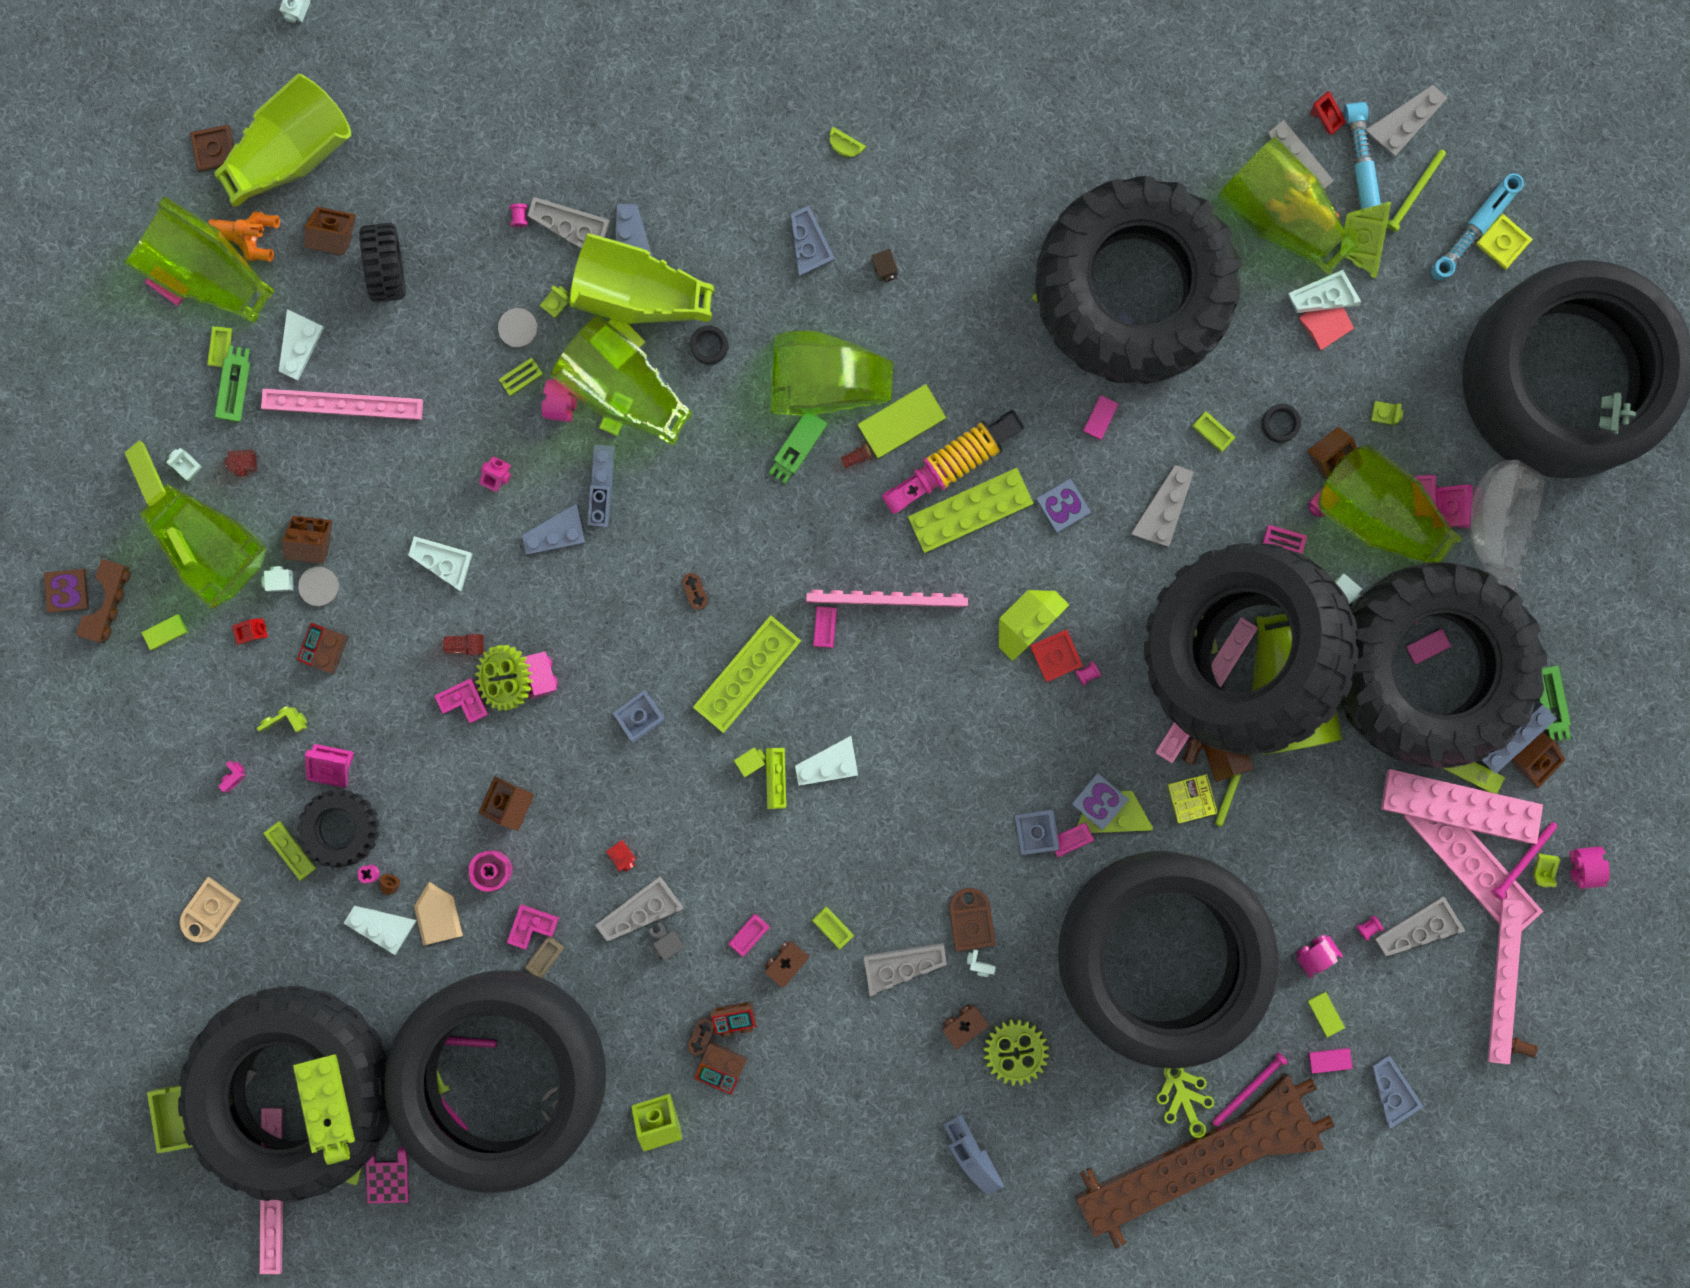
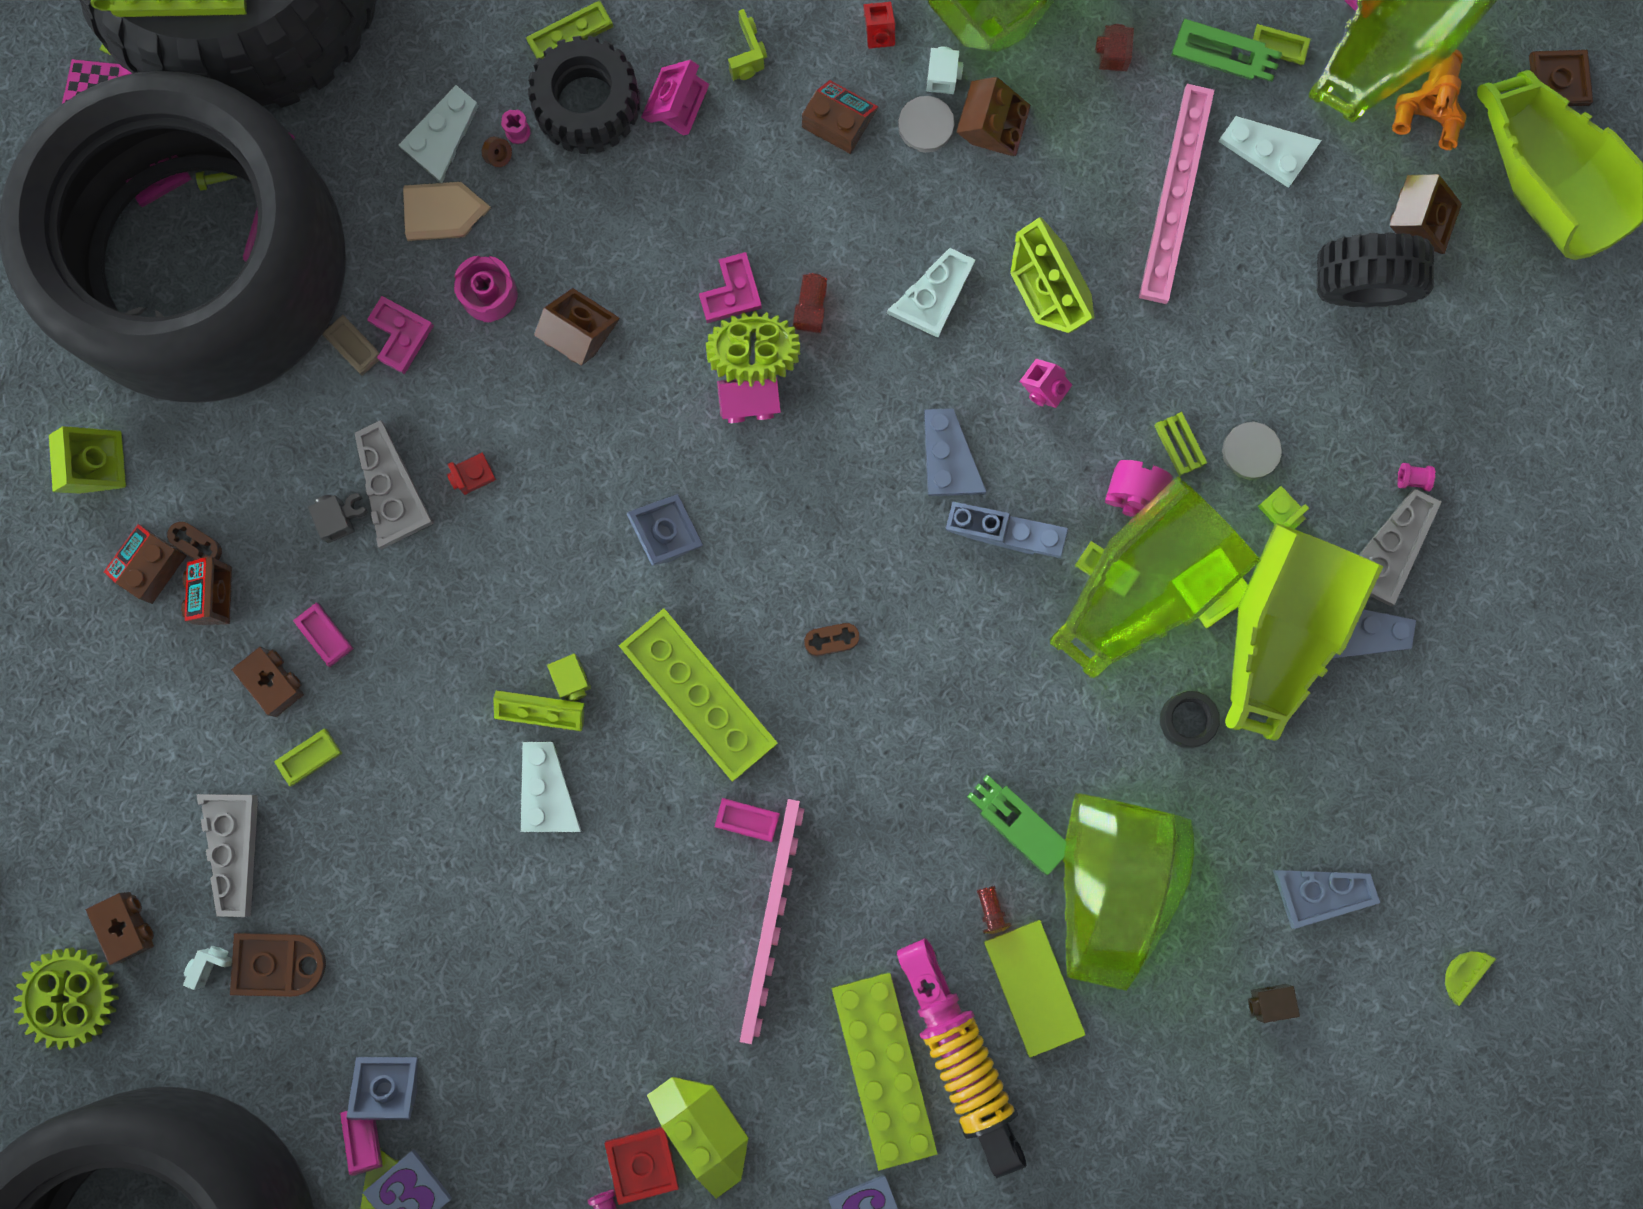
camera: 95 degrees right, 5 degrees down
(420, 481) = (1050, 279): none -> lime wedge

